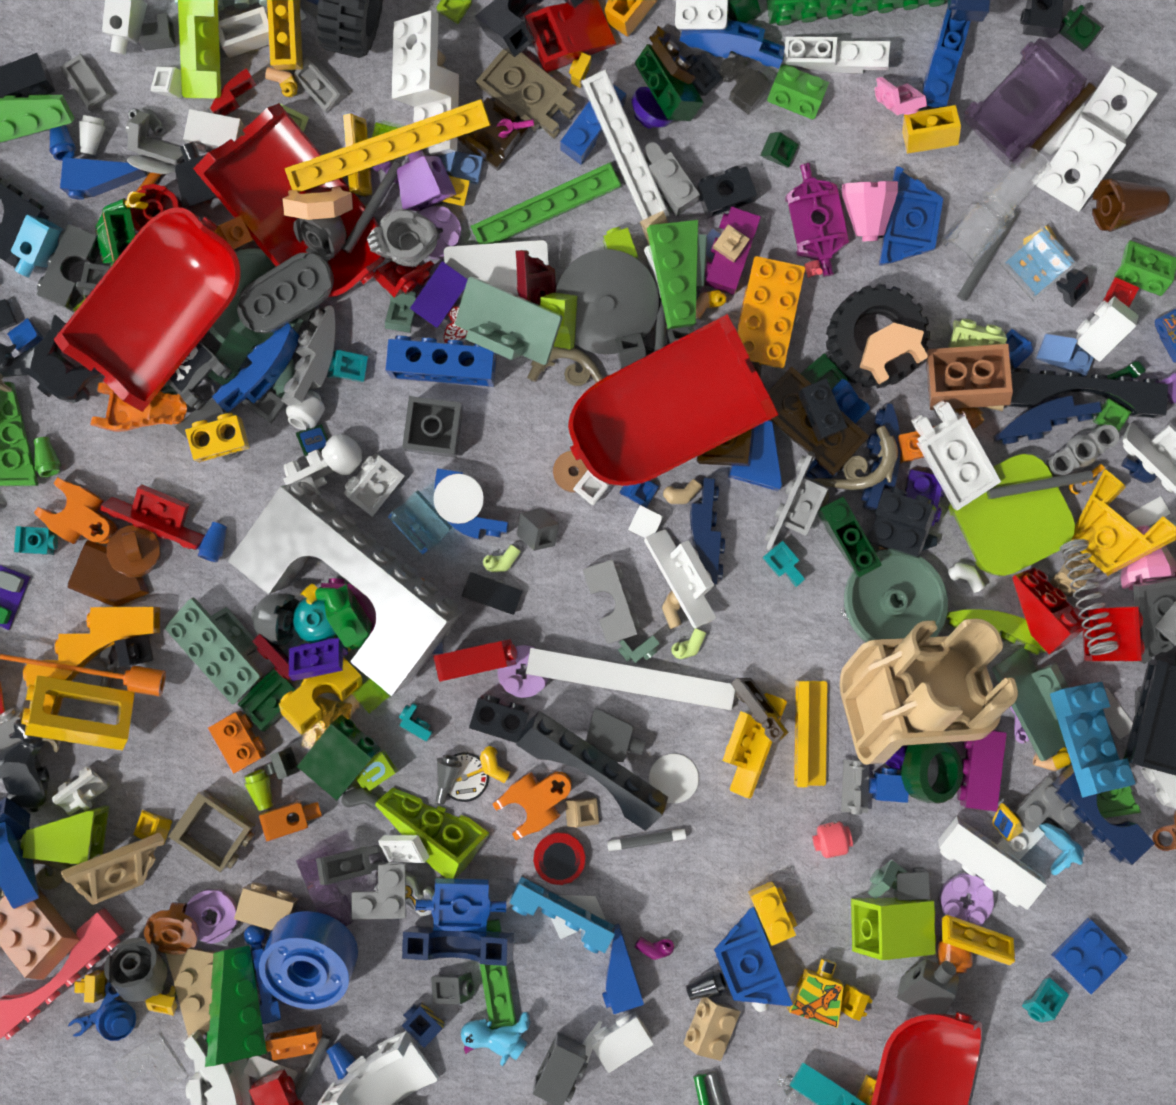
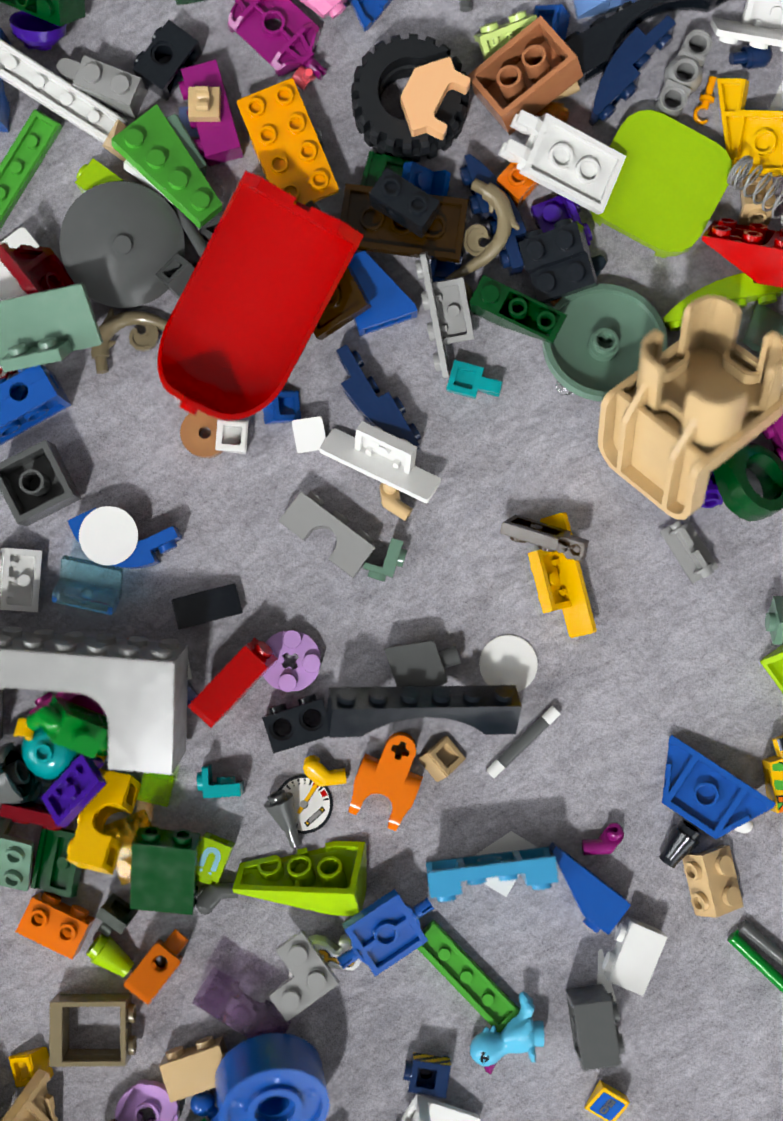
camera: 30 degrees left, 0 degrees up
(347, 864) = (245, 970): dark grey hinge -> none
(403, 848) = (291, 916): white plate -> none
(452, 988) = (434, 1019): dark grey bracket -> none
(483, 947) = (434, 959): dark blue arch -> none
(501, 562) = (196, 570): yellowish green arm -> none
(537, 529) = (208, 513): dark grey panel -> none
(559, 858) = (450, 819): tile -> none
(566, 306) = (101, 300): lime arch -> none
(630, 679) = (398, 596): white tile -> none
(681, 496) = (327, 384): tan arm -> none
(689, 648) = (436, 526): yellowish green arm -> none
(709, 300) = (222, 177): arm -> none
(772, 914) = (694, 728): yellow brick -> none
(810, 733) = (610, 528): yellow panel -> none
(832, 839) = (703, 616): coral head -> none
(888, 786) = (721, 527): blue brick -> none
(967, 573) = (655, 269): white arm -> none
(1040, 484) = (666, 133): dark grey bar -> none
(1112, 414) = (686, 21): bright green tile -> none

